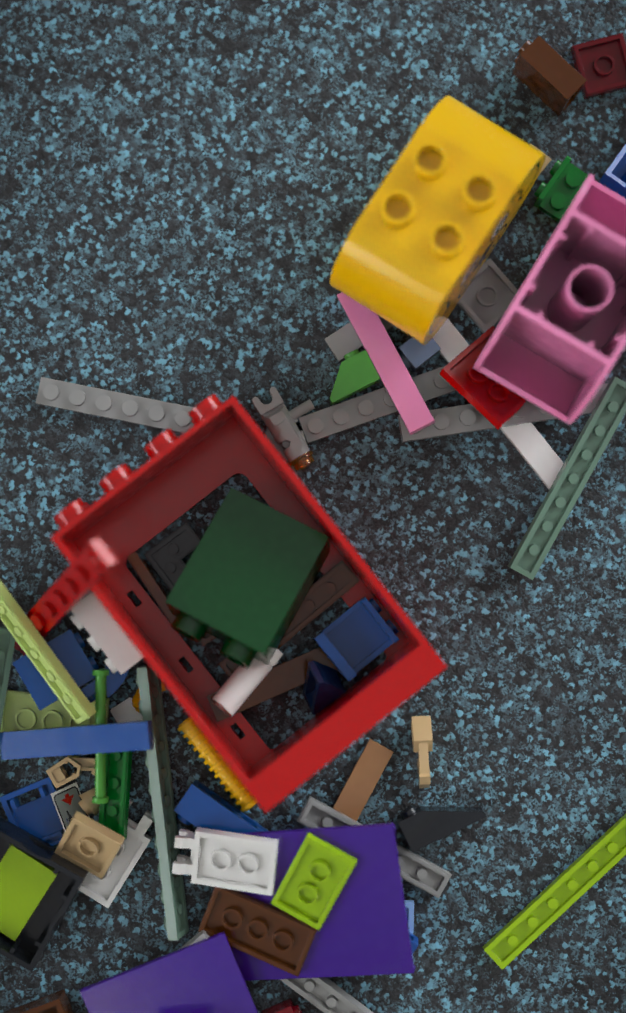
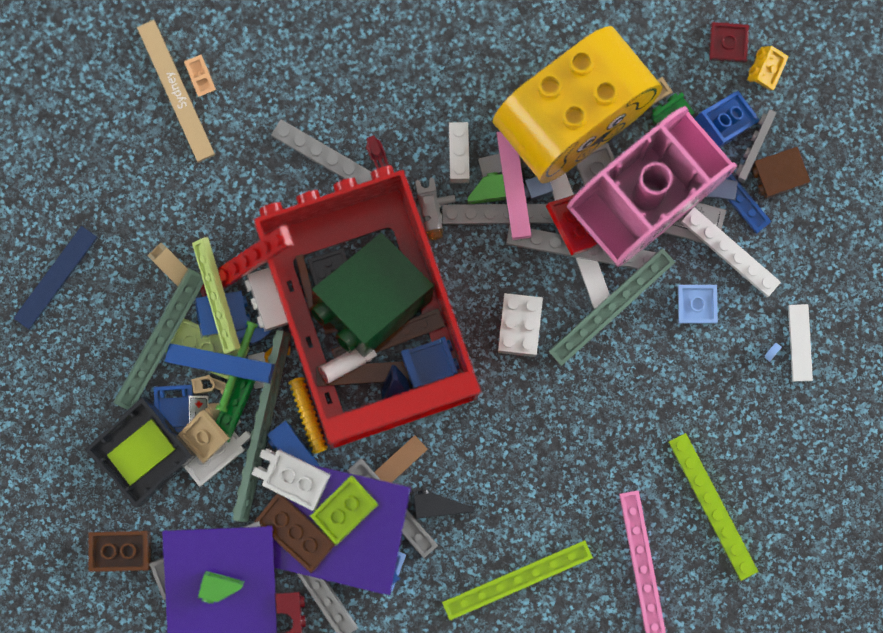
camera: 25 degrees right, 5 degrees down
(186, 377) = (376, 151): none -> dark red piece
(296, 339) = (459, 152): none -> white brick
(422, 743) = (449, 449): tan piece -> none
(459, 544) = (520, 325): none -> white brick
(548, 75) = (687, 35): reddish brown brick -> none

